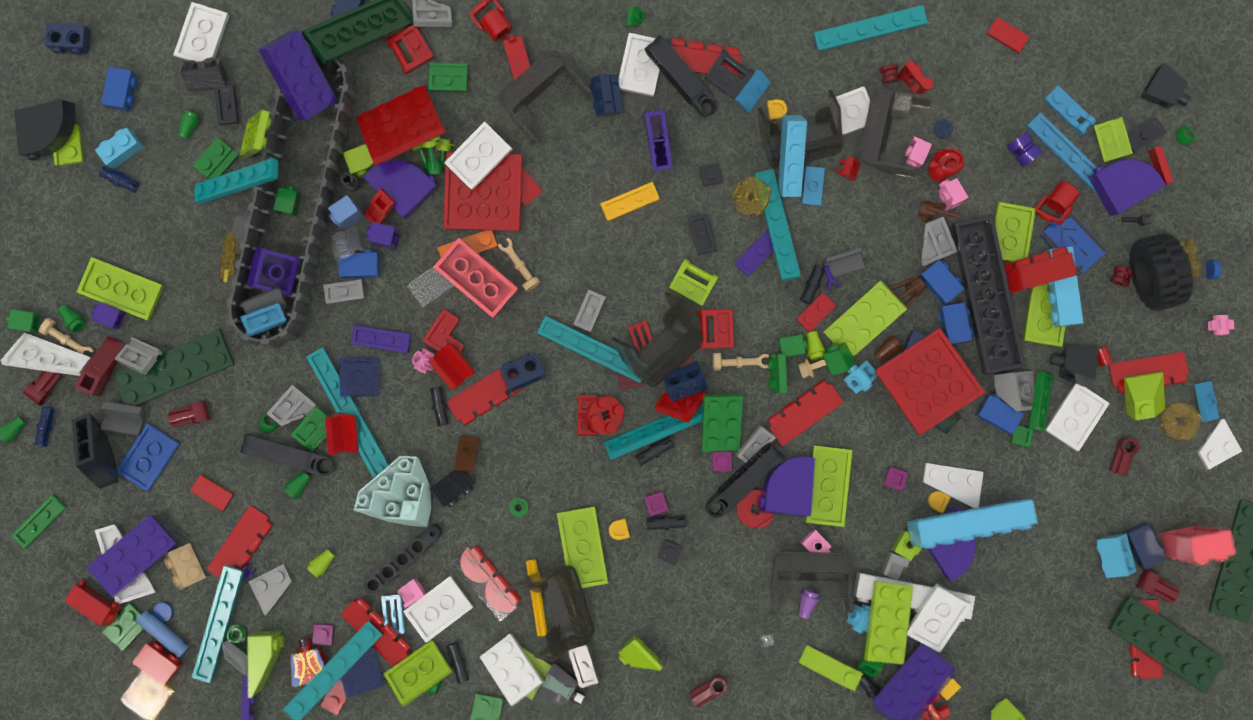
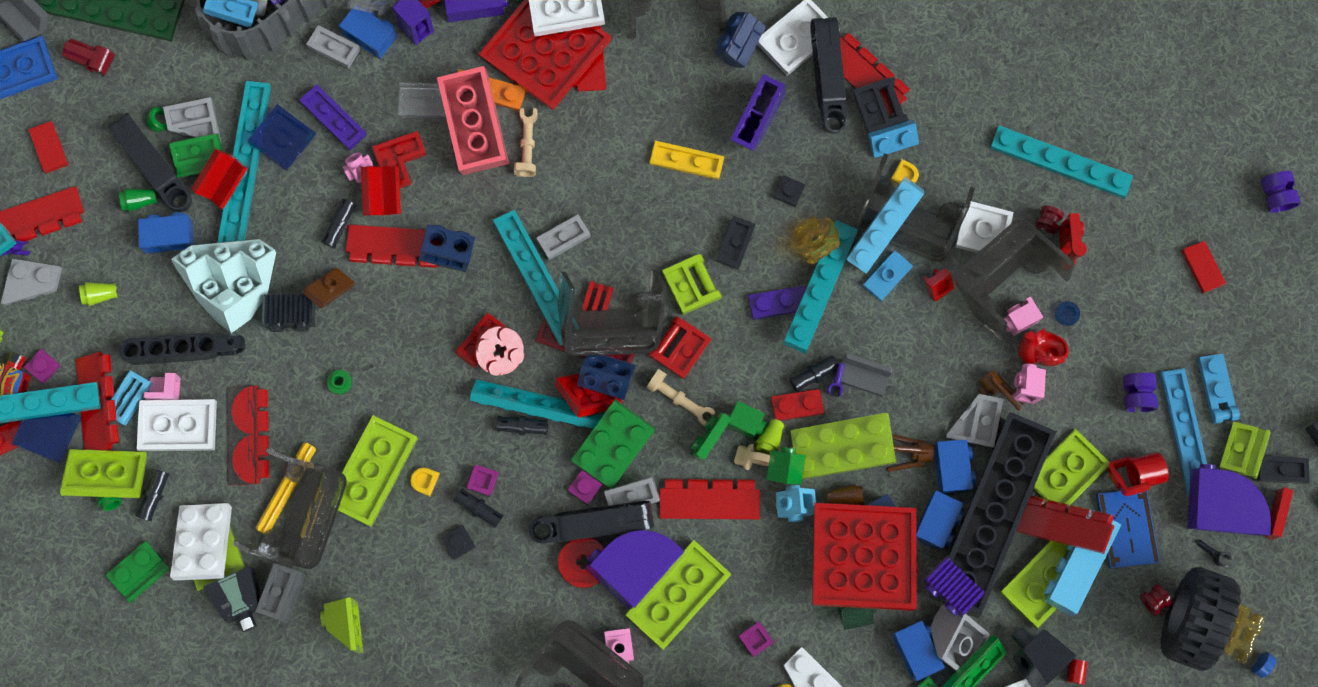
camera: 30 degrees right, 10 degrees down
(334, 493) = (165, 233): none -> blue brick
(998, 362) = (953, 587): none -> dark purple brick

